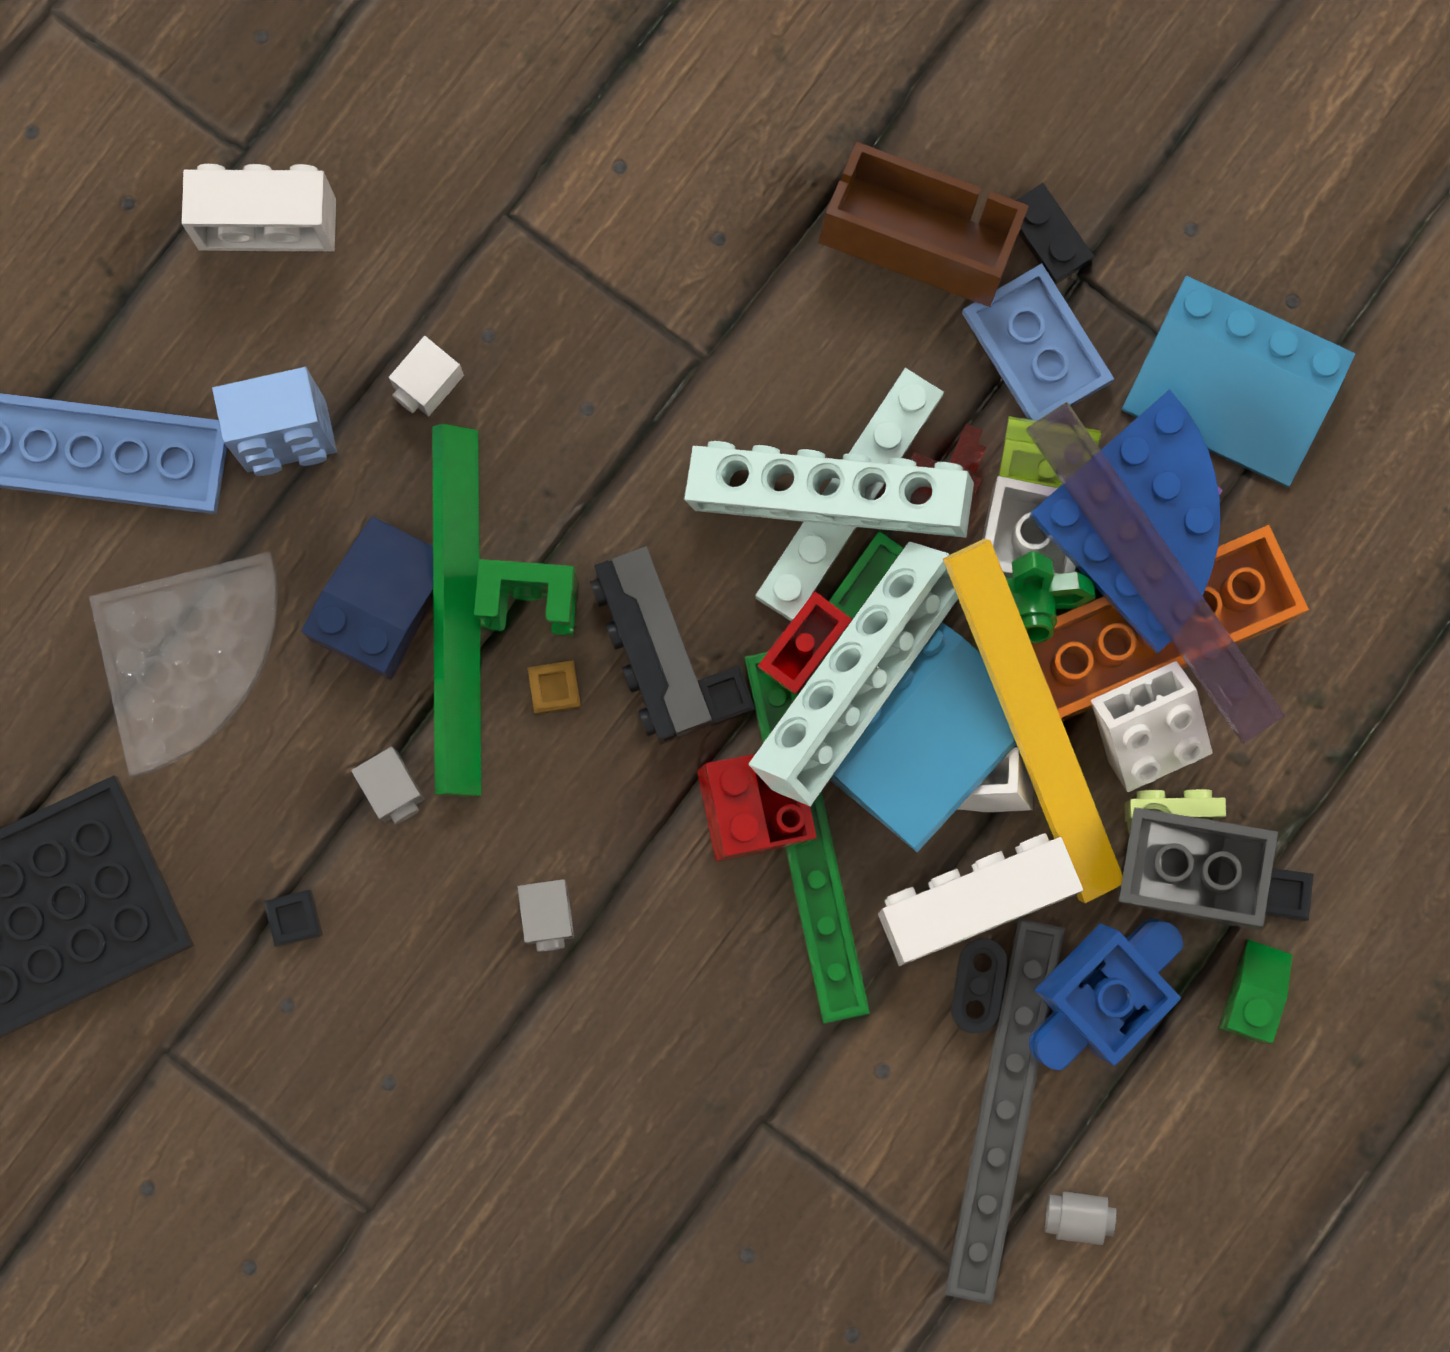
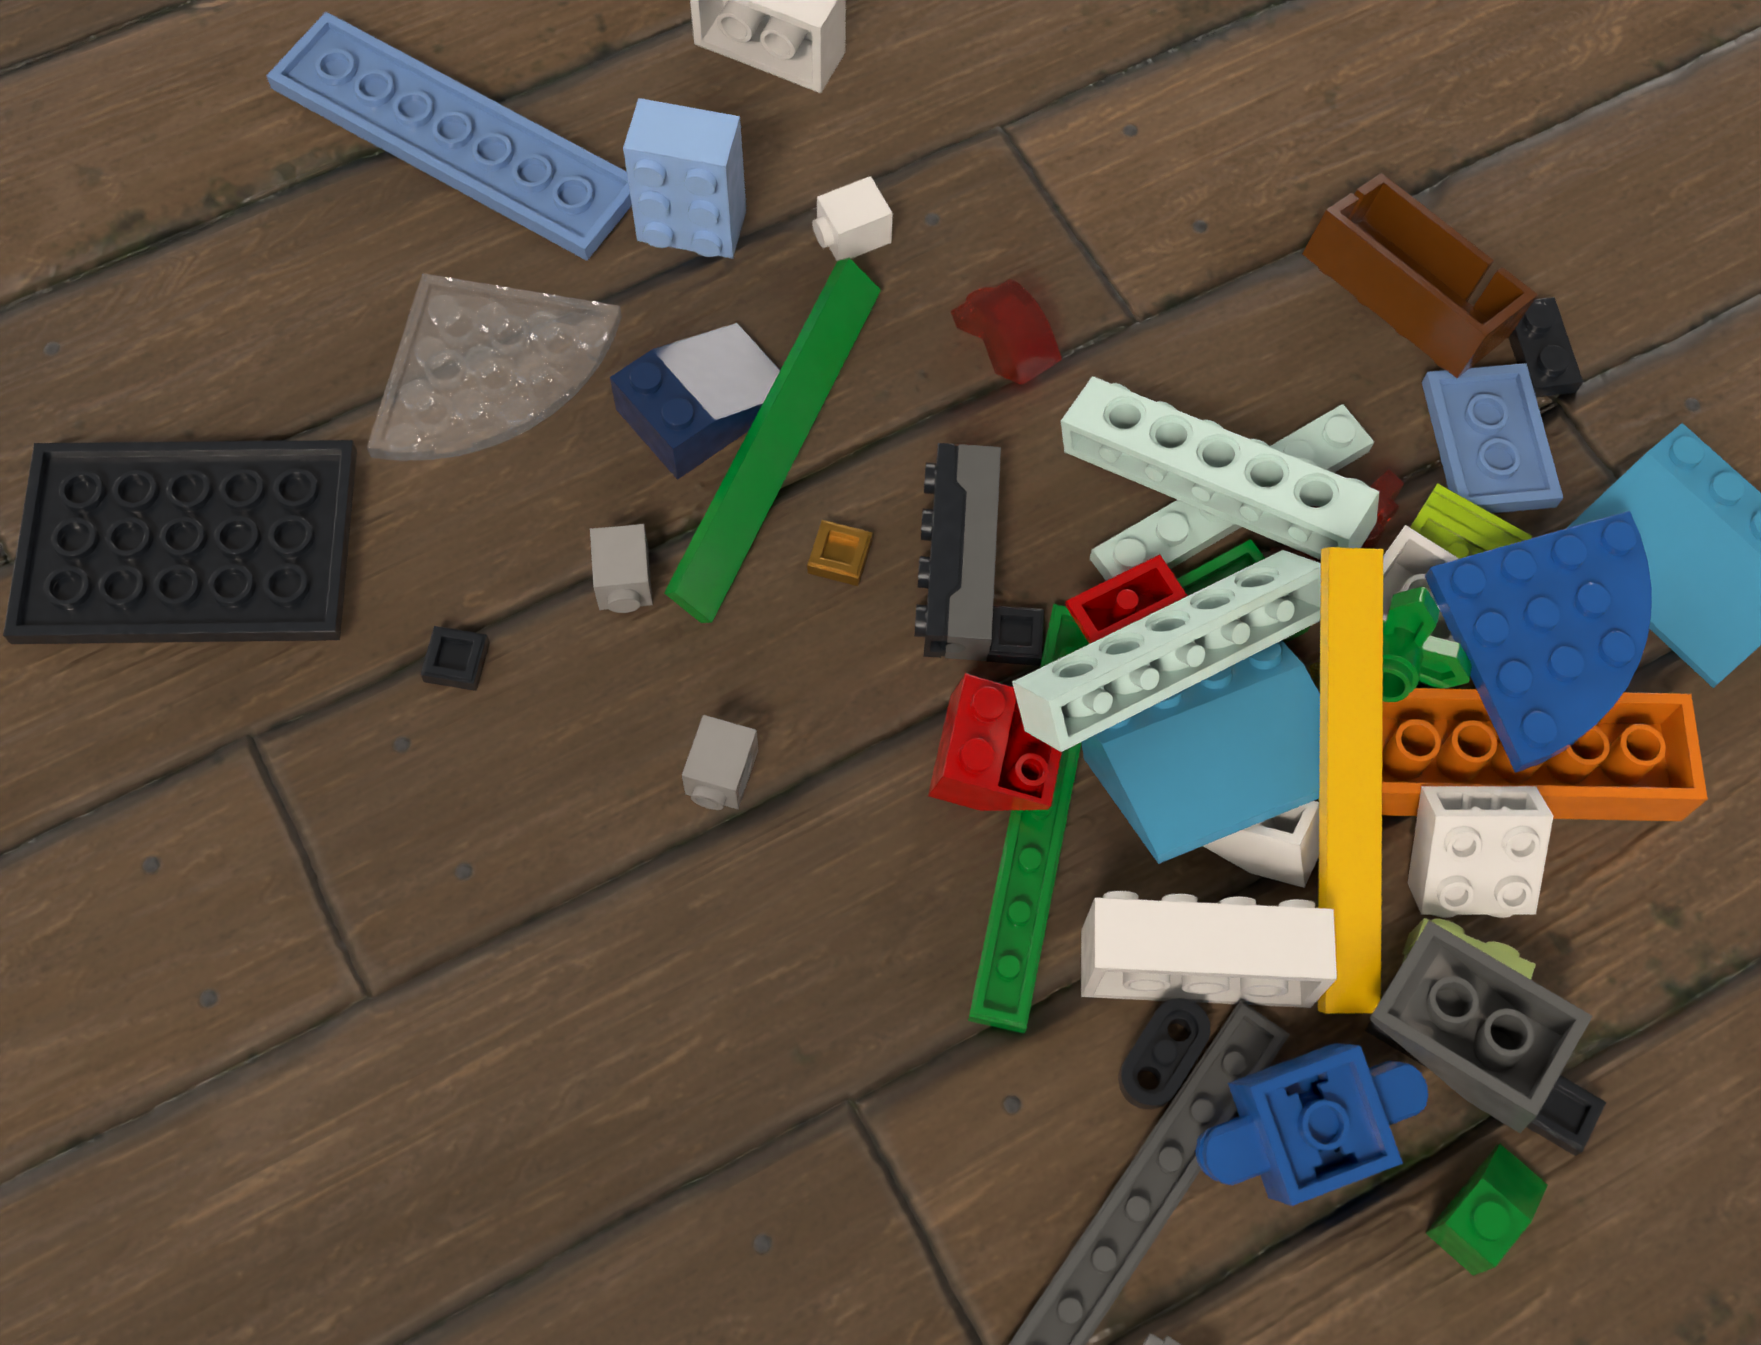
camera: 20 degrees right, 15 degrees down
(528, 583) = (860, 428): green panel -> none
(604, 428) = (1011, 329): none -> clear red brick
(1155, 573) = (1553, 686): clear purple tile -> none

